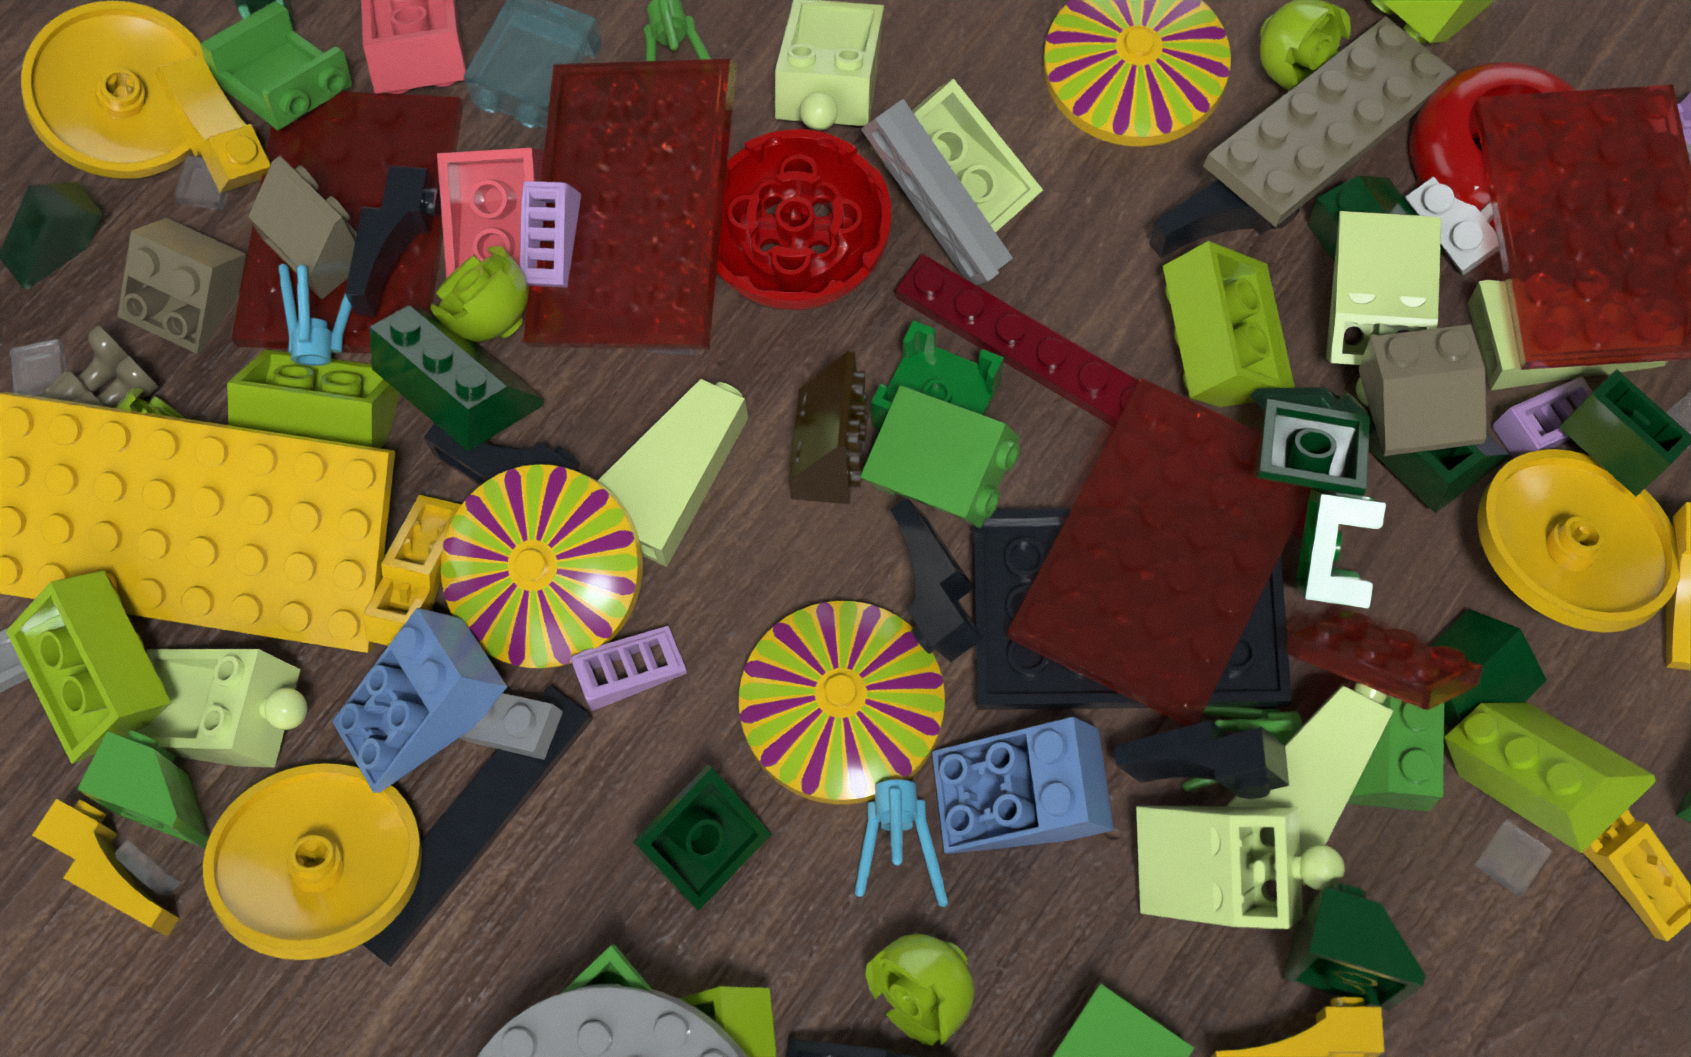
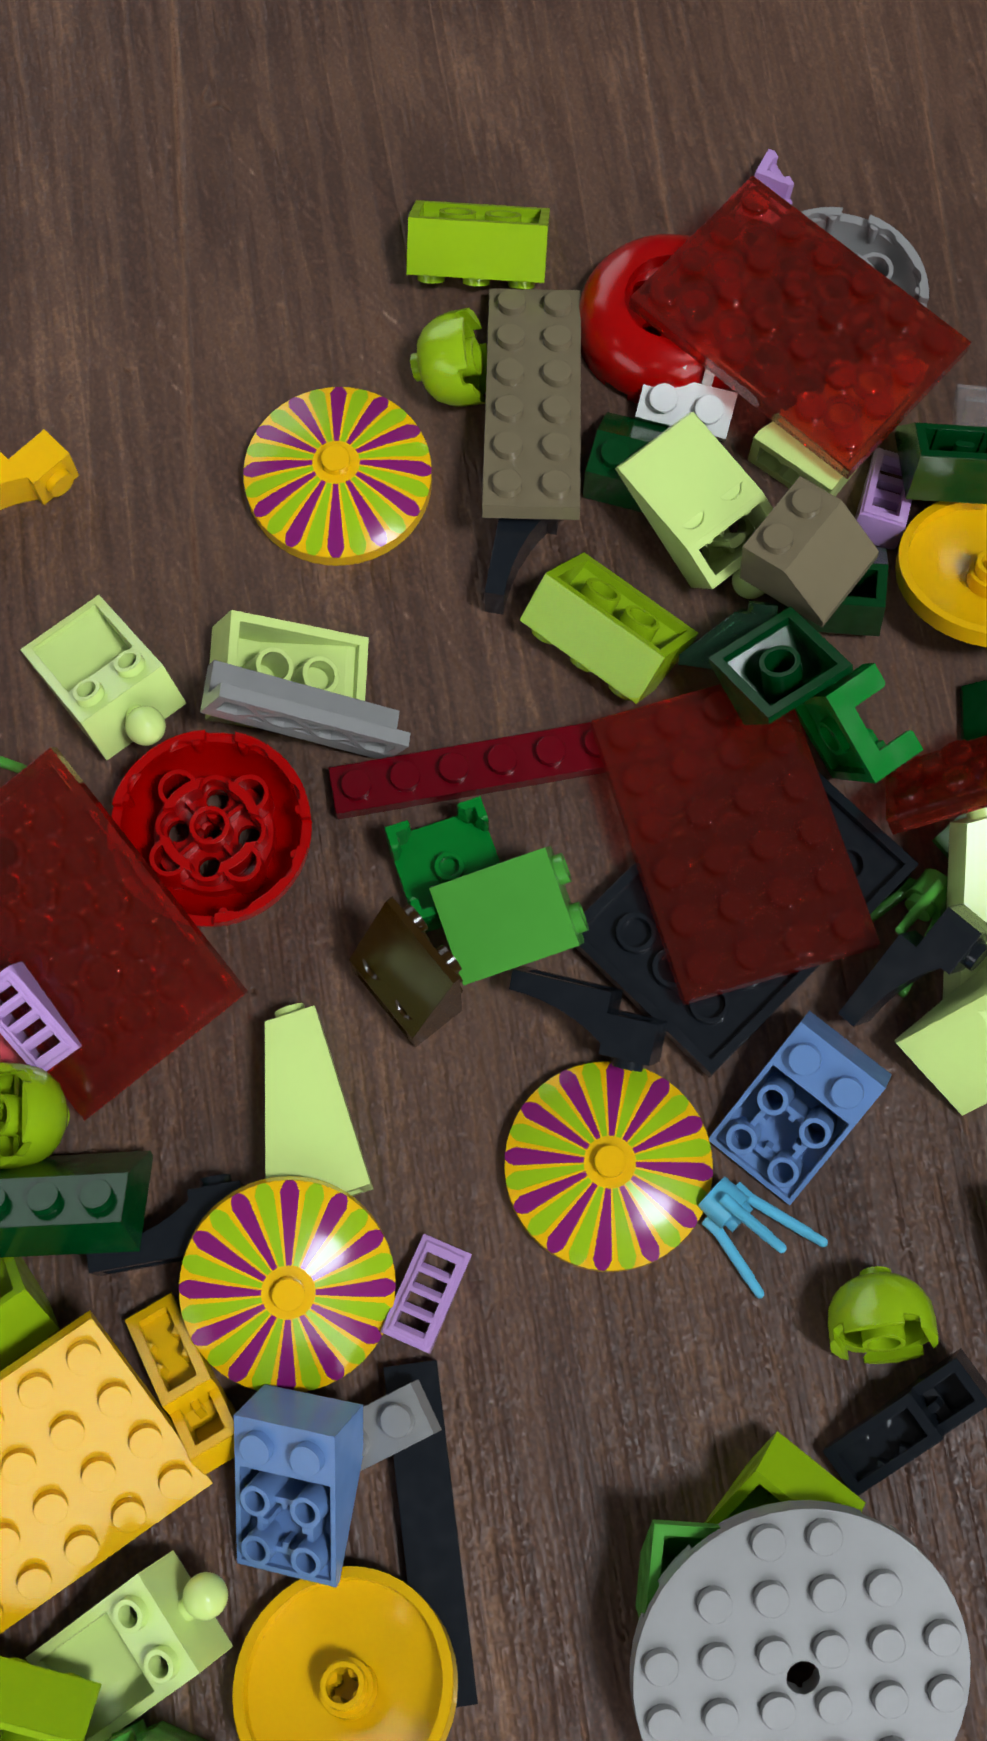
camera: 50 degrees left, 5 degrees up
(701, 838) = (617, 1370): dark green slope -> none

